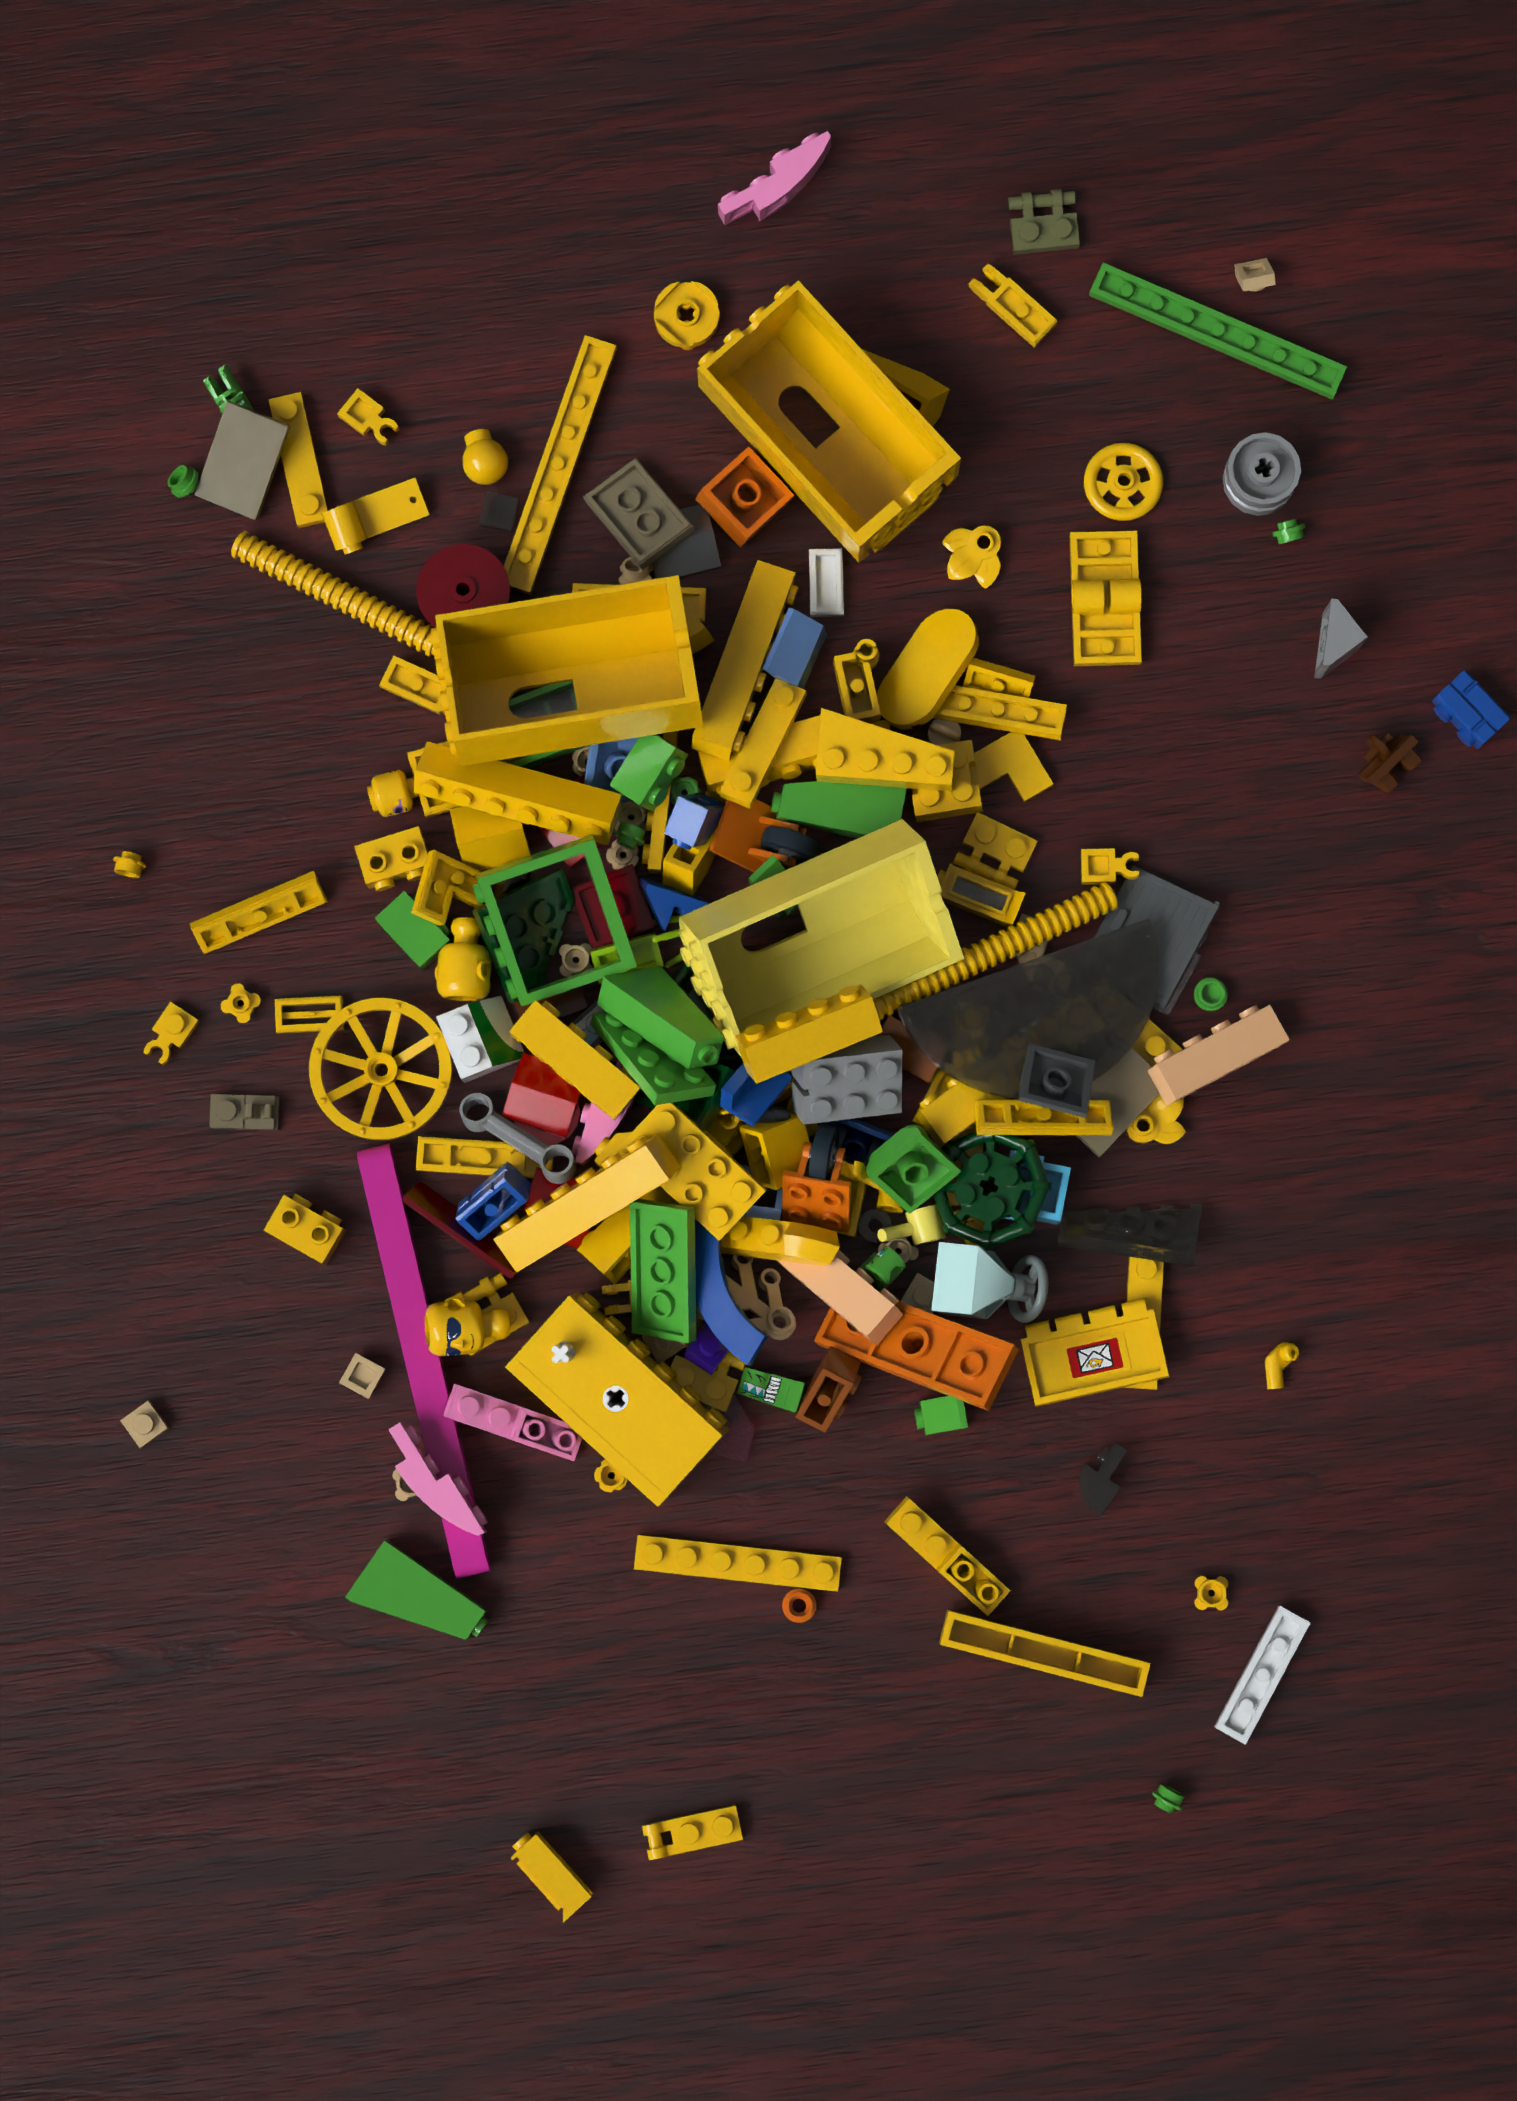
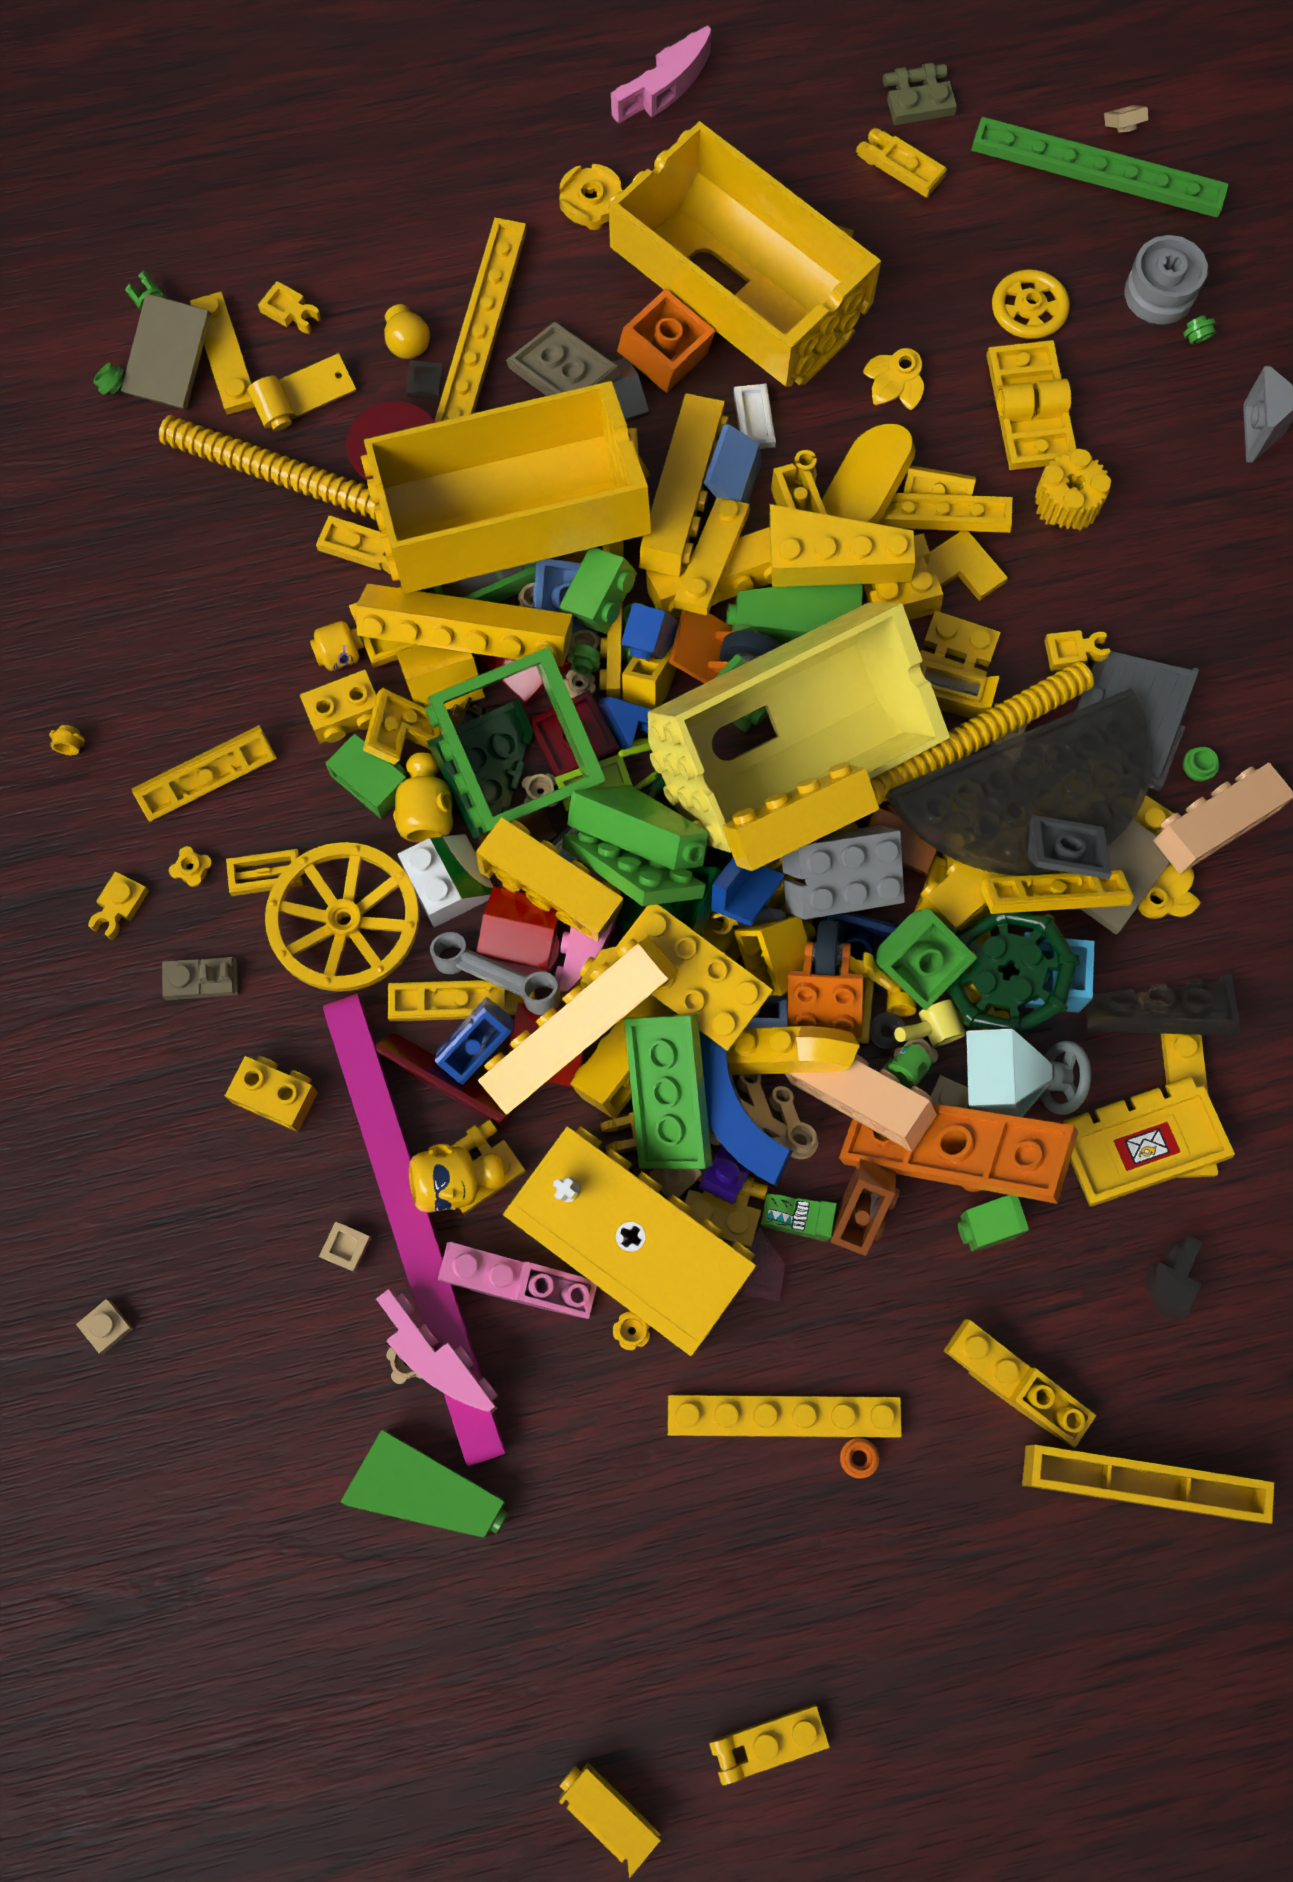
camera: 10 degrees left, 10 degrees down
(1130, 681) = (1072, 490): none -> yellow brick

